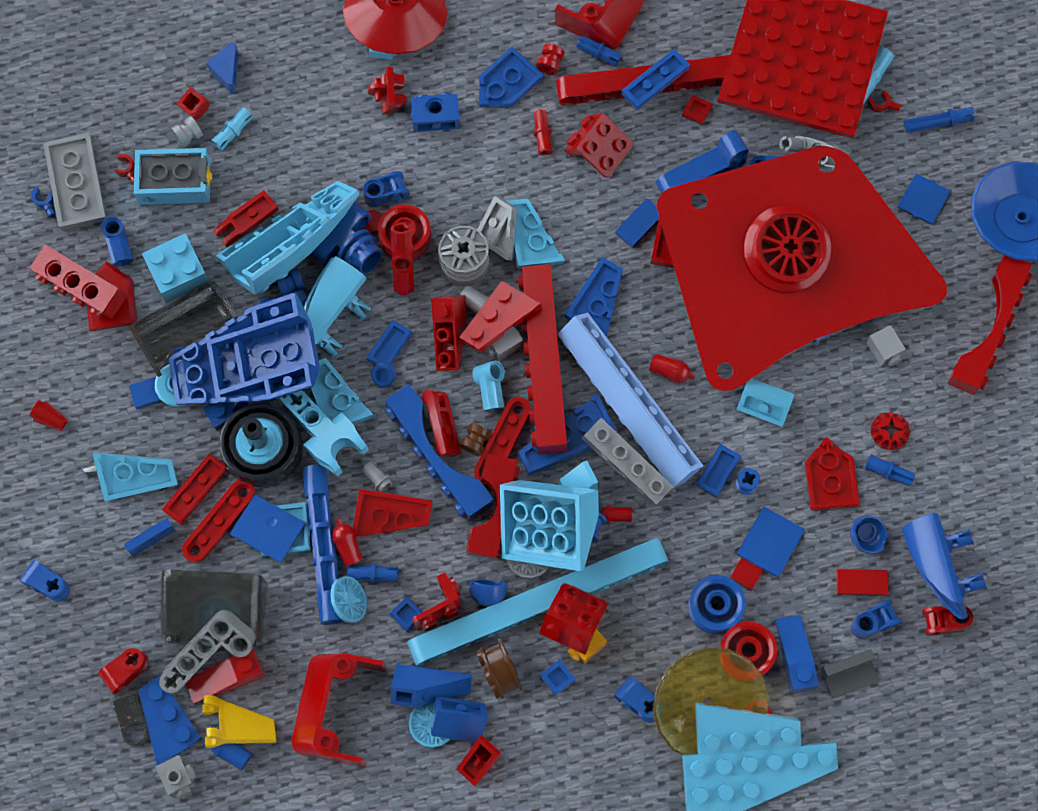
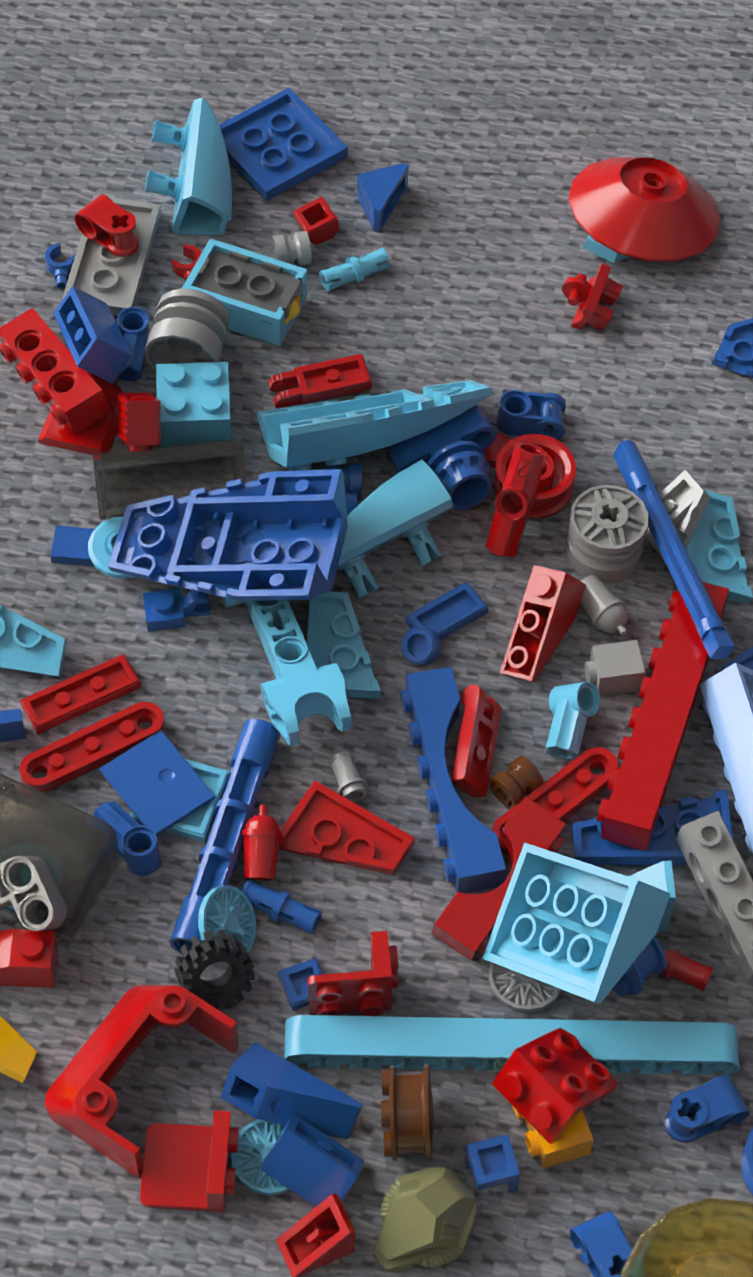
camera: 20 degrees right, 15 degrees down
(65, 164) = (108, 226): none -> red piece
(92, 248) = (92, 335): none -> blue brick
(108, 102) = (204, 178): none -> medium azure piece
(142, 55) = (280, 144): none -> blue plate
(148, 296) = (139, 420): none -> red brick
(150, 222) = (187, 329): none -> light grey wheel
(259, 565) = (131, 838): none -> blue piece
(261, 445) = (201, 668): black wheel -> none
(348, 625) = (210, 951): none -> black tyre
(390, 749) = (189, 1165): none -> red bracket
(446, 119) = (646, 346): blue brick -> none
(487, 592) = (440, 998): blue hair -> none
(498, 314) = (624, 622): wing -> none
(508, 253) = (707, 622): none -> blue piece
(533, 724) = (425, 1220): none -> olive helmet
(662, 591) = (710, 1107): none -> blue piece

